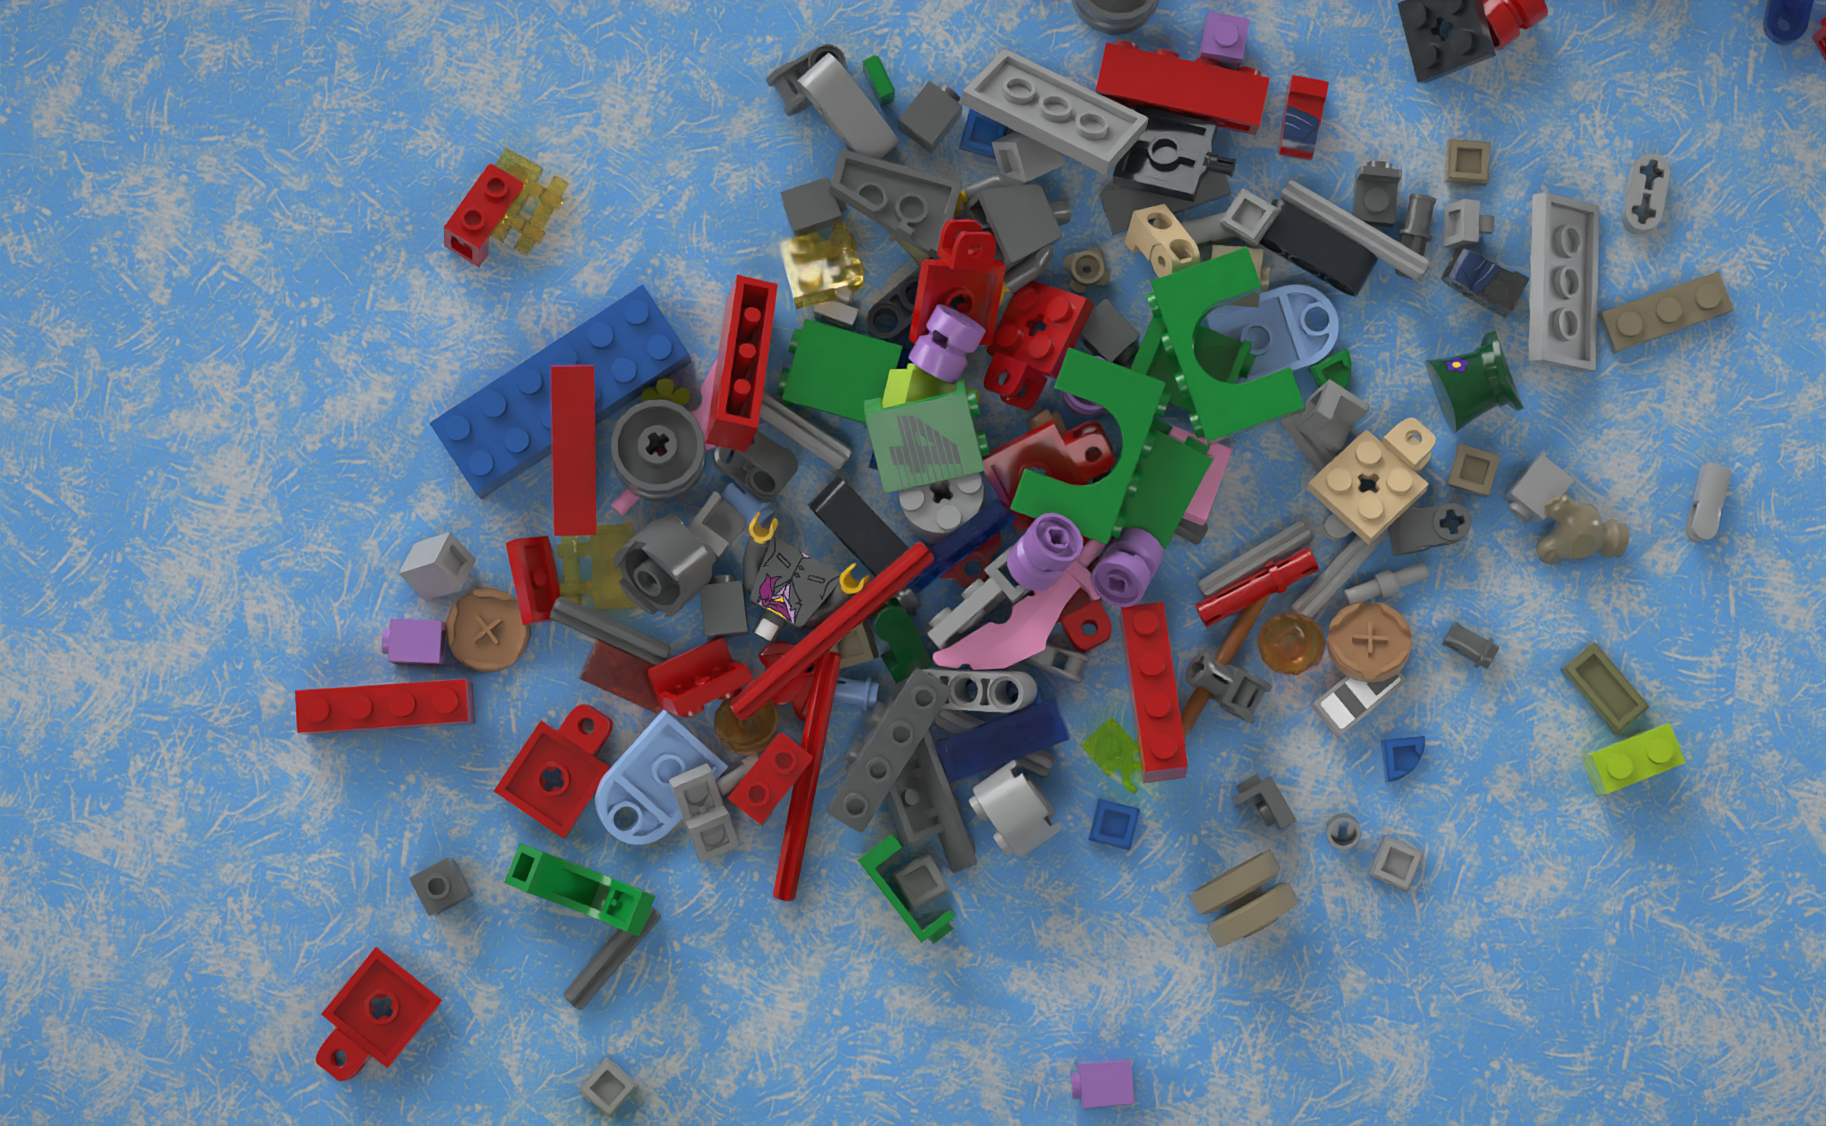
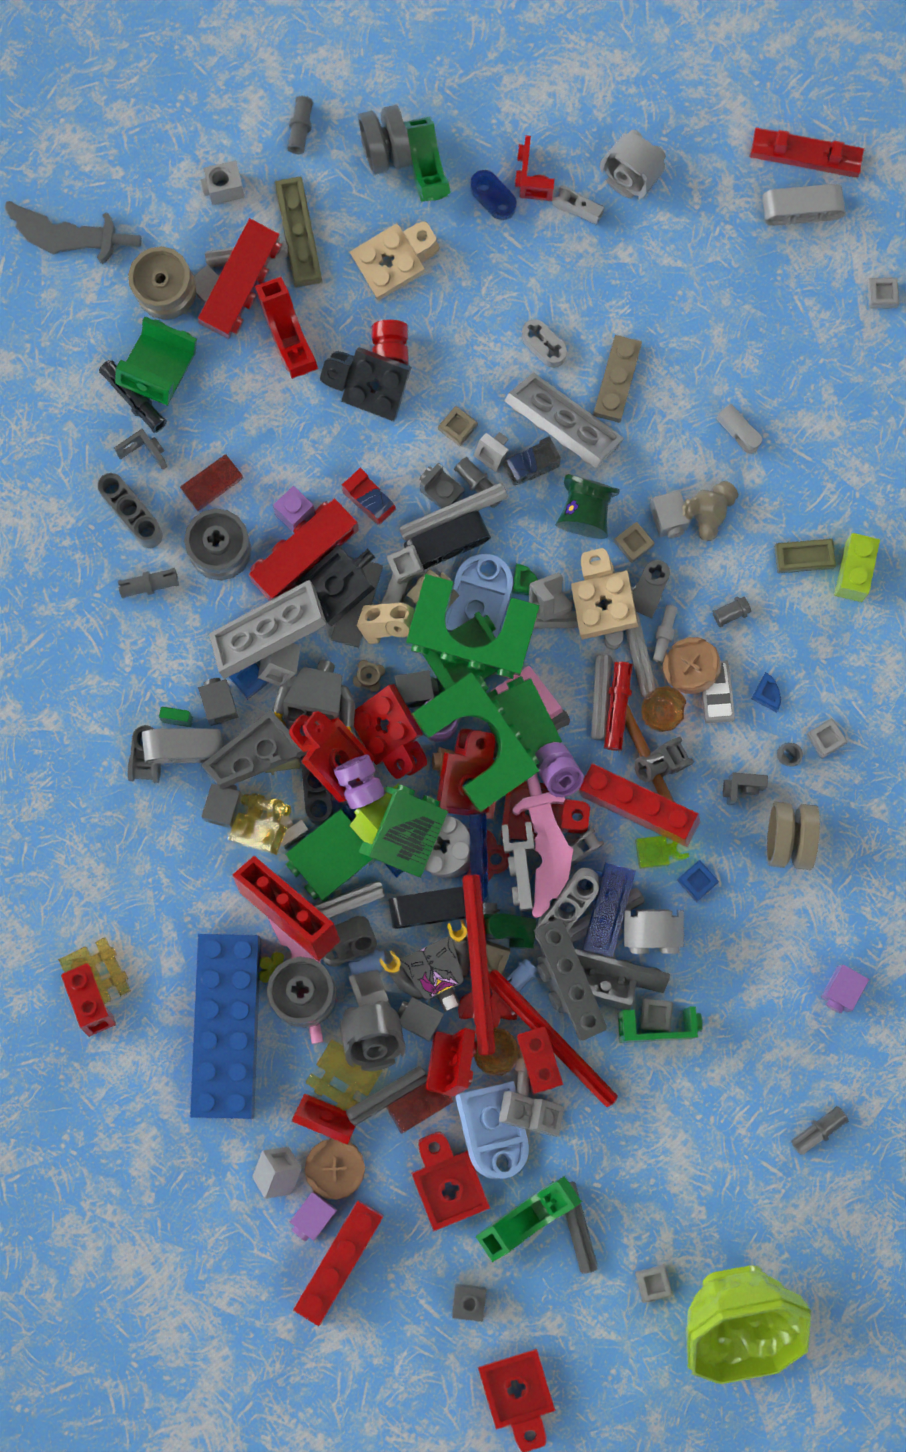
camera: 55 degrees left, 5 degrees down
(573, 450) = (267, 1042): red tile -> none
(1044, 552) = (520, 808): medium lavender wheel -> none

